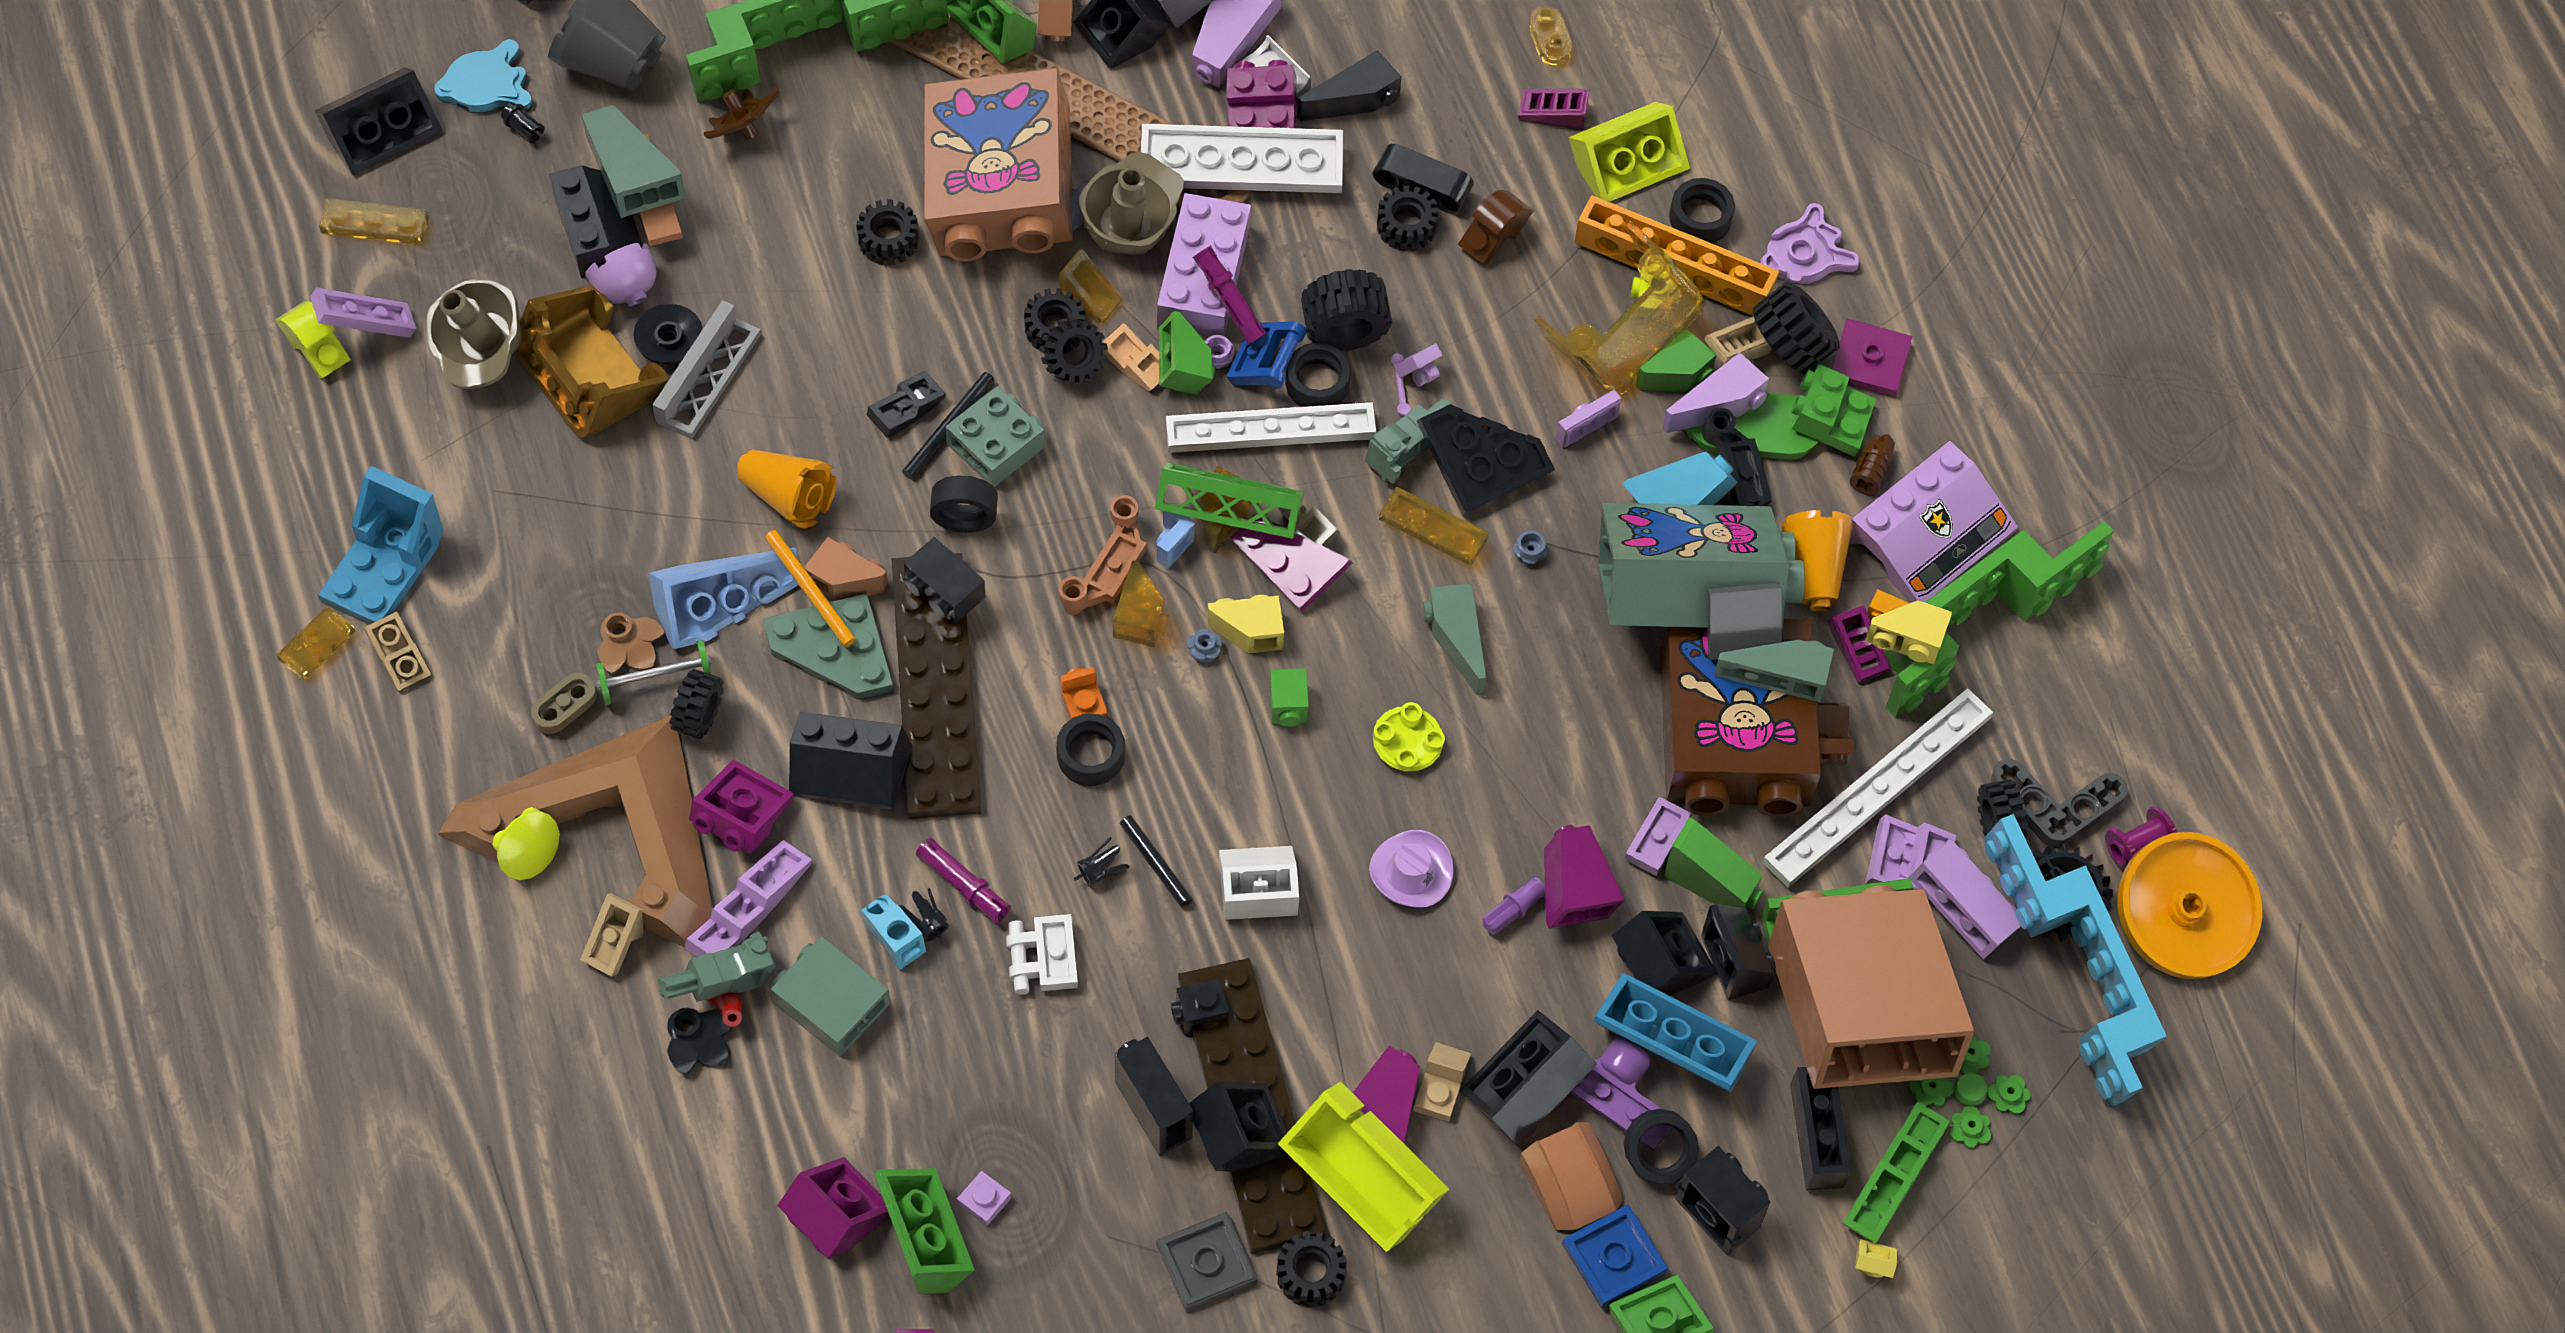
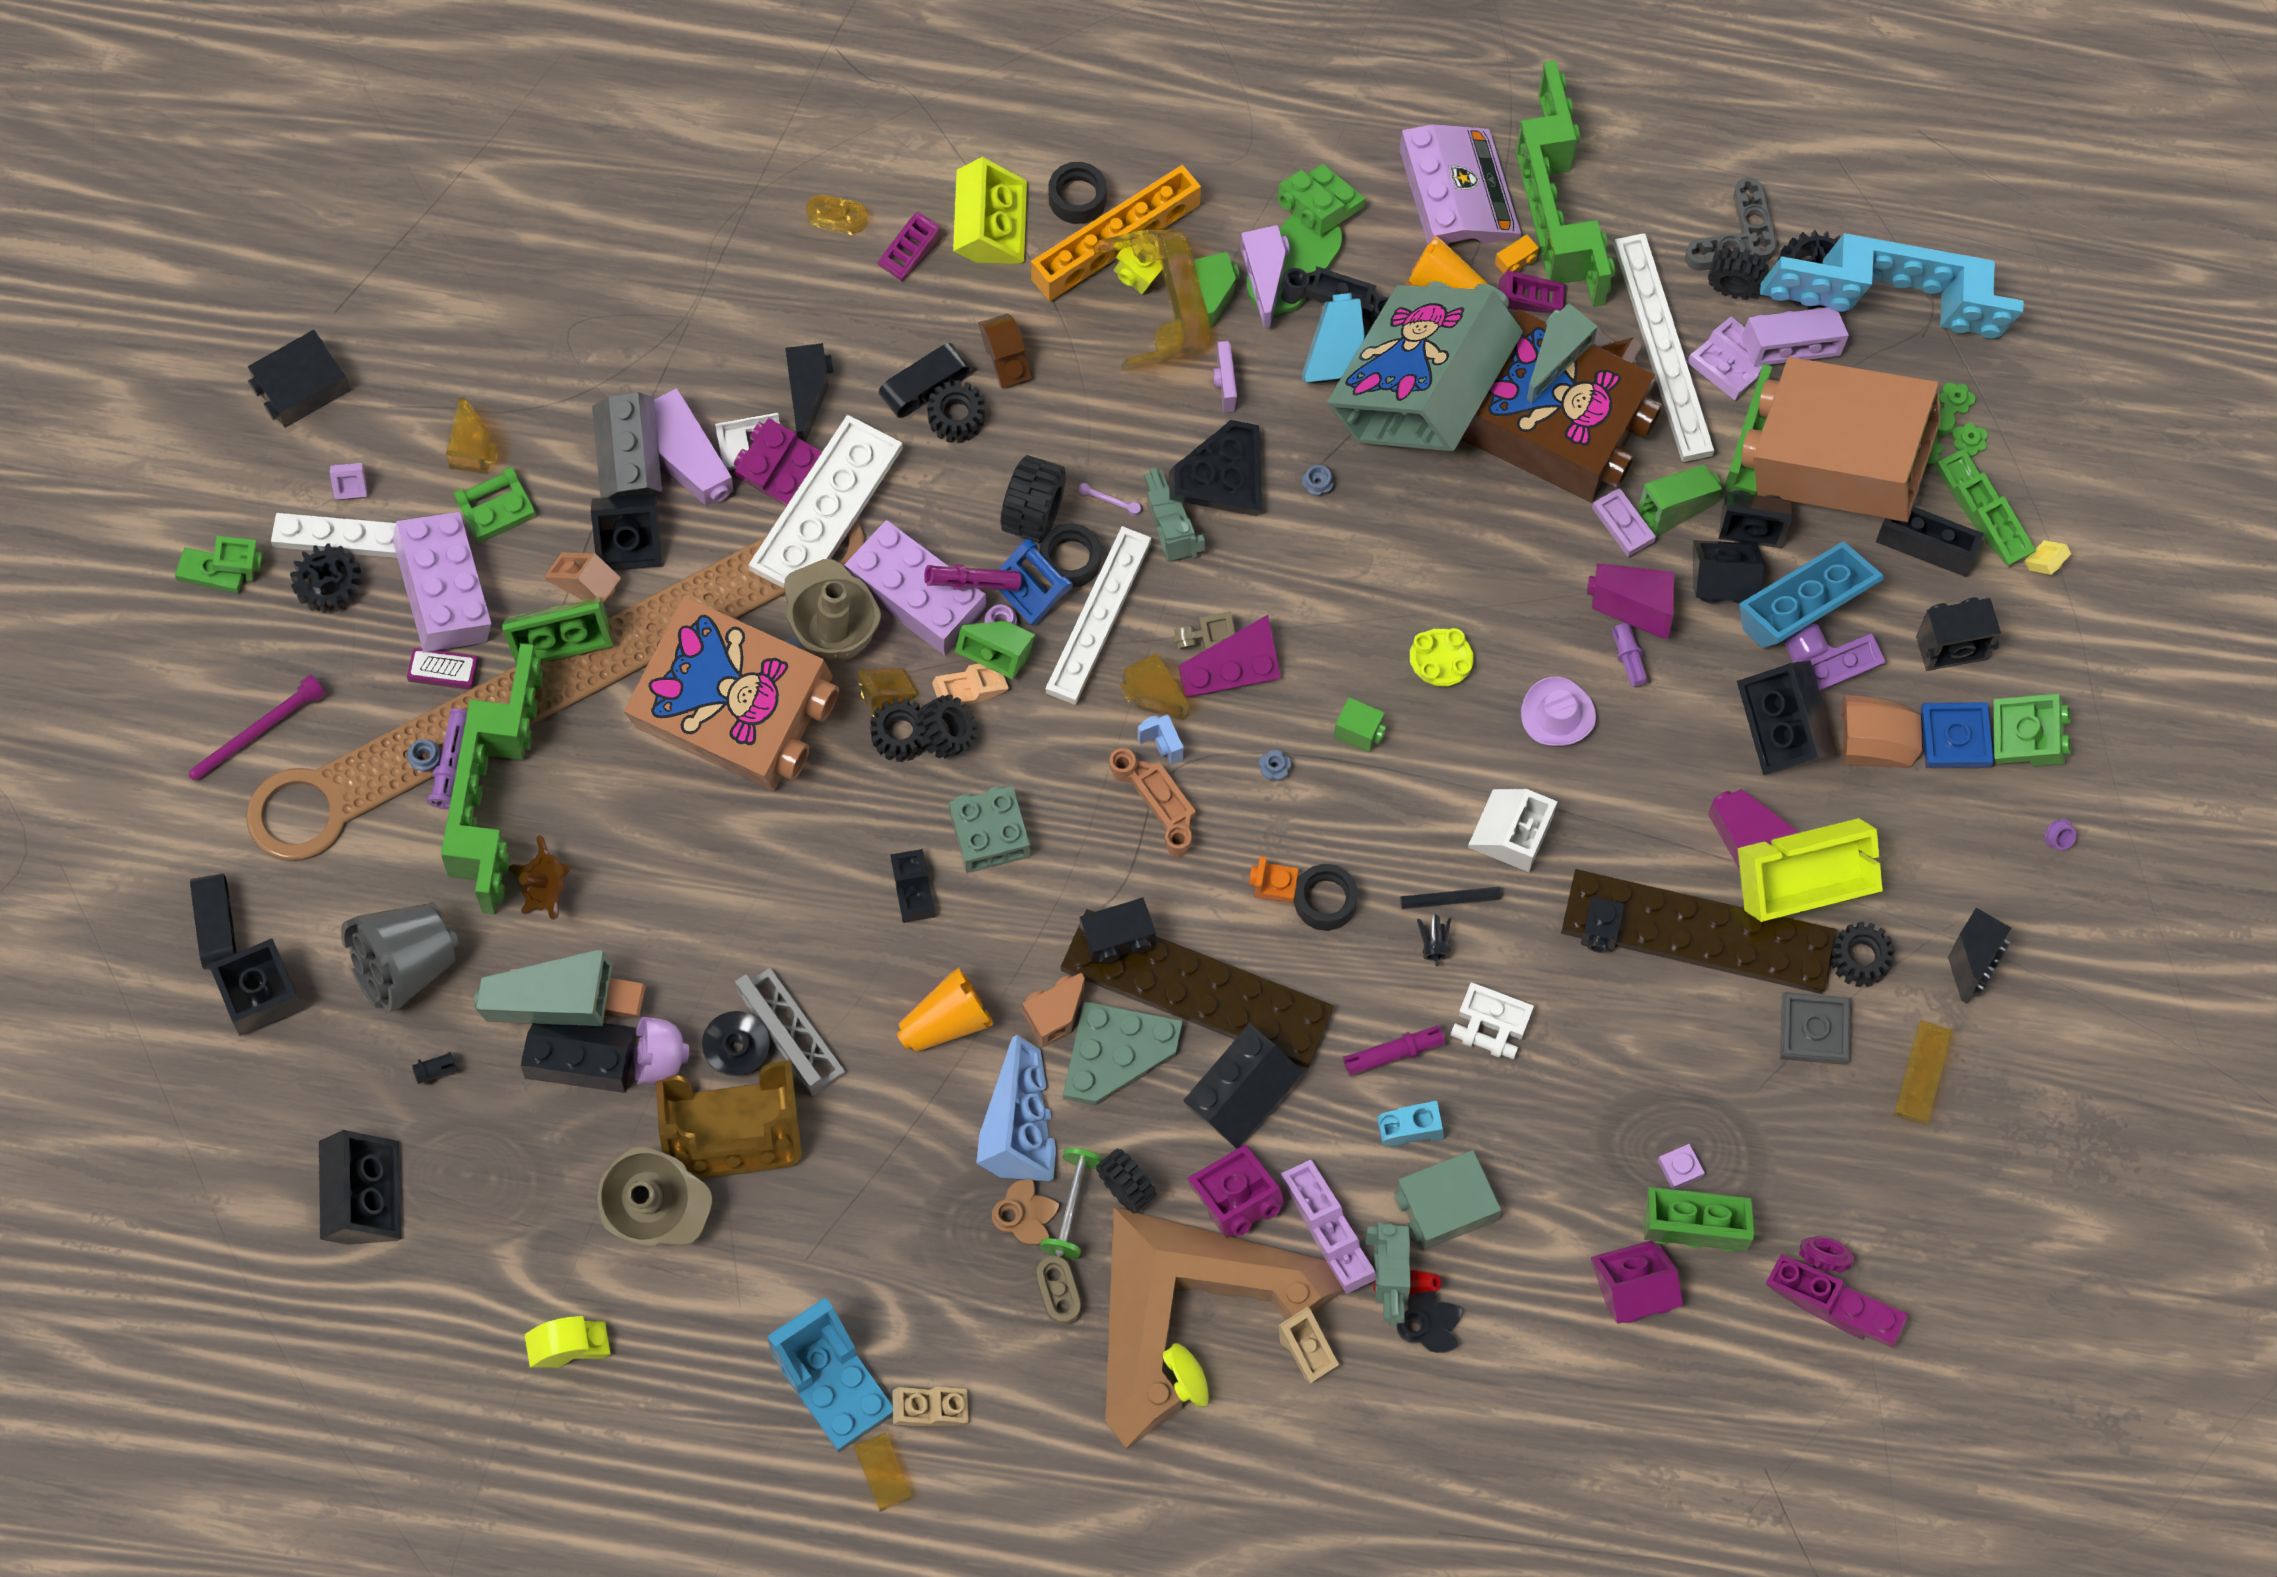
camera: 60 degrees left, 5 degrees up
(362, 312) = (576, 1285): lavender plate -> none
(374, 221) = (464, 1241): clear yellow plate -> none
(485, 80) = (366, 1081): medium azure tile -> none
(810, 588) = (1064, 1040): light orange bar -> none
(887, 216) = (729, 801): black tyre -> none
(933, 922) = (1420, 1089): black piece -> none
(939, 434) = (952, 862): black bar -> none
(954, 491) = (1048, 882): black tyre -> none
(1140, 609) = (1216, 796): clear yellow slope -> none
(1153, 1095) = (1668, 994): black brick -> none
(1233, 487) = (1158, 666): bright green fence -> none
(1238, 1125) = (1728, 944): black slope -> none
(1249, 623) = (1277, 720): light yellow slope -> none
(1420, 365) = (1104, 472): lavender tile -> none
(1433, 526) = (1260, 540): clear yellow plate -> none
(1442, 1082) = (1745, 773): tan slope -> none
(1456, 630) = (1365, 570): sand green slope -> none
(1637, 1129) = (1908, 649): black tyre -> none
(1740, 331) = (1221, 227): tan slope -> none
(1743, 617) = (1509, 352): dark grey tile -> none
(1796, 327) = (1239, 181): black tyre -> none
(1807, 249) = (1153, 140): lavender tile -> none
(1872, 357) = (1280, 146): magenta plate -> none
(1873, 465) = (1380, 197): reddish brown hinge -> none
(1911, 630) = (1576, 240): light yellow slope -> none
(2125, 846) = (1806, 206): magenta hose -> none
(2189, 905) = (1877, 189): light orange dish -> none

